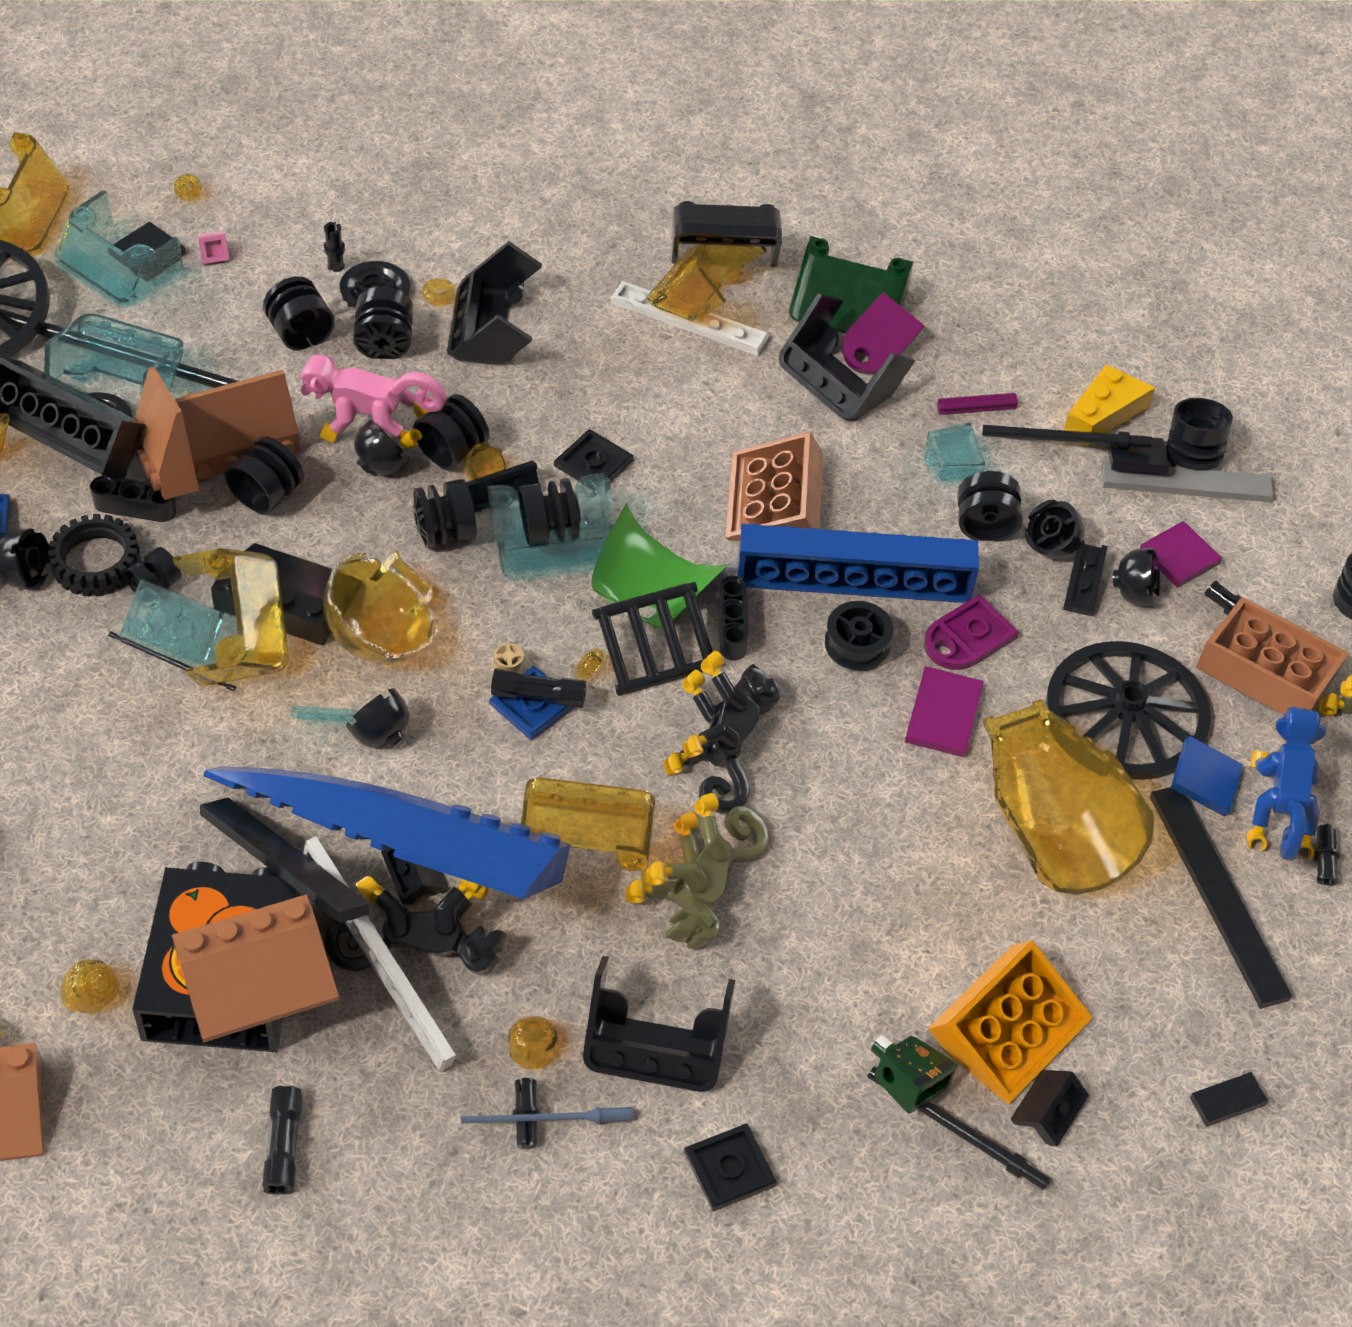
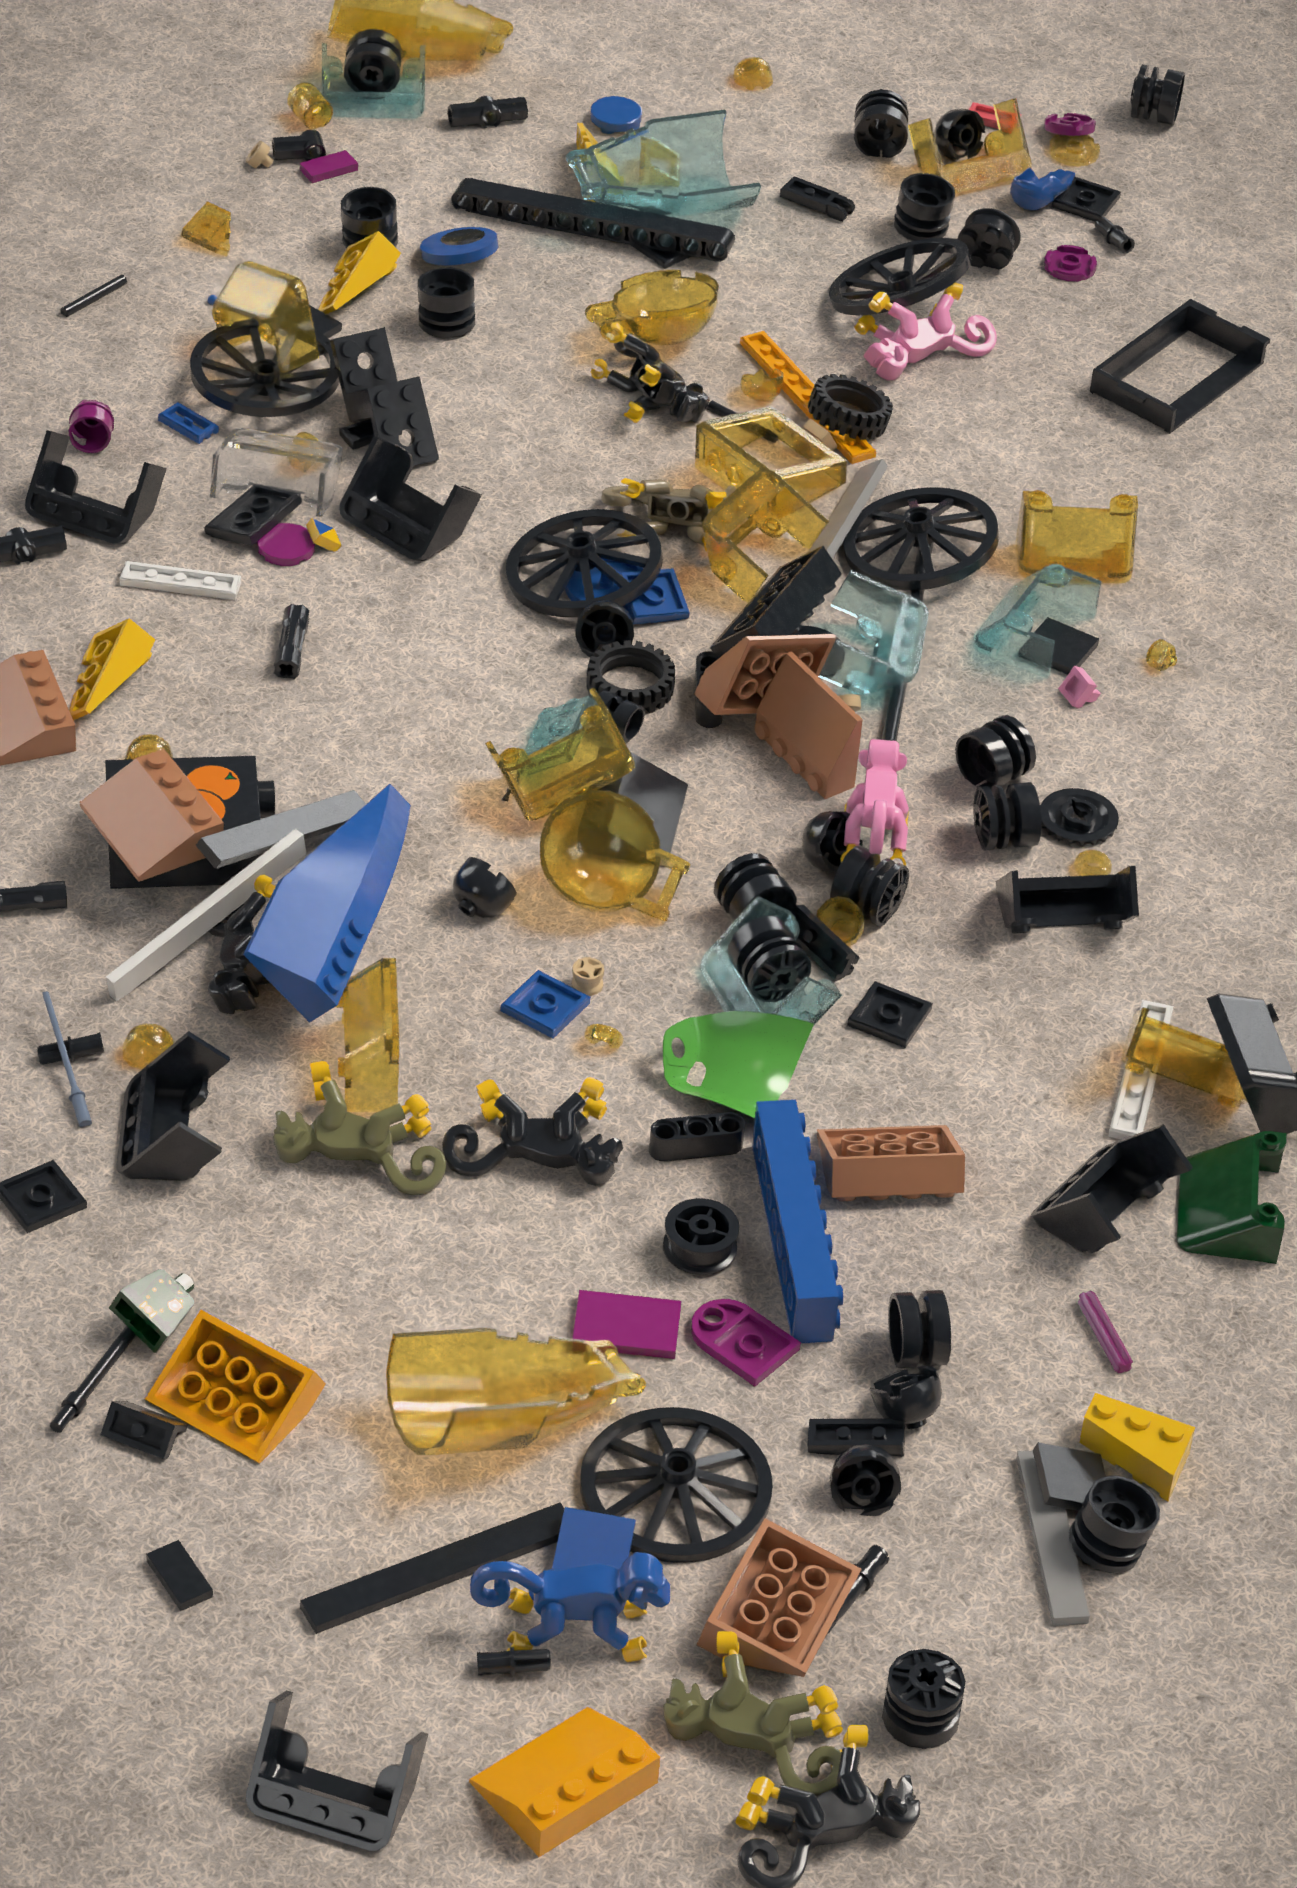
camera: 80 degrees right, 10 degrees down
(264, 475) = (759, 763): black wheel -> none
(323, 713) = (483, 847): clear light blue tile -> none
(334, 246) = (1106, 764): black pin -> none
(515, 684) = (551, 980): black axle -> none
(632, 608) = (664, 1038): black bar -> none
(877, 333) = (1170, 1226): magenta tile -> none
(953, 453) = (1007, 1308): clear light blue torso -> none
(1122, 439) = (1077, 1449): black bar -> none
(1182, 554) = (929, 1530): magenta tile -> none

